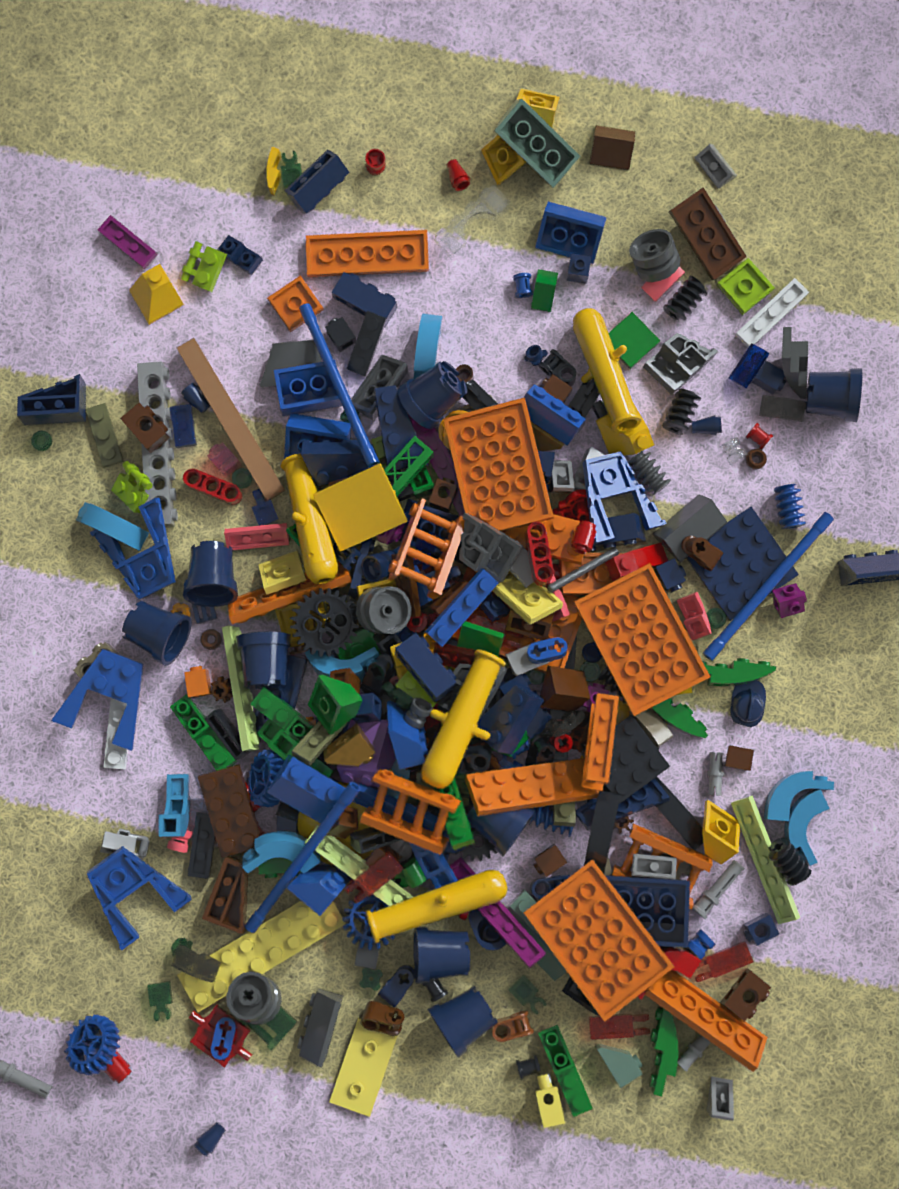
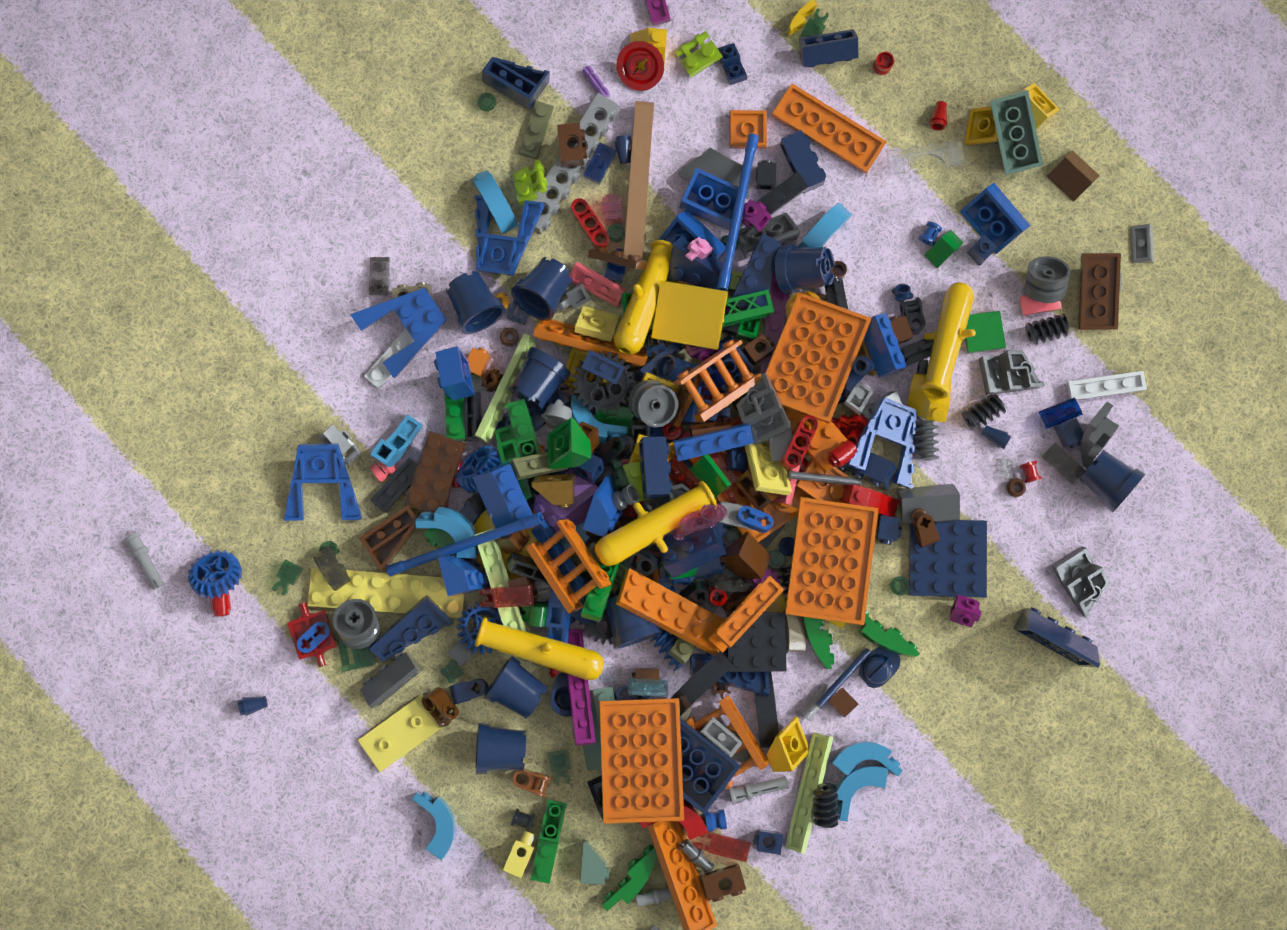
camera: 25 degrees right, 0 degrees up
(53, 665) = (379, 276): none -> clear smoke slope
(127, 354) = (595, 81): none -> medium lavender axle
(145, 319) = (642, 79): none -> red gear
(184, 708) = (454, 373): none -> blue brick
(245, 561) = (575, 296): none -> dark grey plate
(259, 500) = (617, 257): none -> reddish brown plate
(303, 680) = (556, 414): none -> light grey piece
(309, 957) = (414, 625): none -> dark blue wing
(315, 609) = (602, 367): none -> dark blue plate
(327, 441) = (699, 248): none -> bright pink plate
(356, 376) = (755, 215): none -> magenta brick
(435, 989) = (494, 712): black bush -> none
(459, 1120) = (444, 821): none -> dark azure arch
(498, 690) = (696, 520): none -> clear pink connector
(544, 447) = (859, 365): none -> dark blue cone
(557, 868) = (648, 687): none -> clear light blue slope
(617, 1026) = (609, 836): clear red hinge -> none
(695, 615) = (885, 573): coral slope -> none
(706, 988) = (696, 856): none -> dark grey pin
(719, 643) = (888, 606): blue piece -> none
(723, 739) = (843, 678): none -> dark blue bar
(745, 286) = (1100, 351): lime plate -> none
(789, 506) = (1015, 541): blue piece -> none
(870, 502) = (1081, 582): none -> dark grey slope

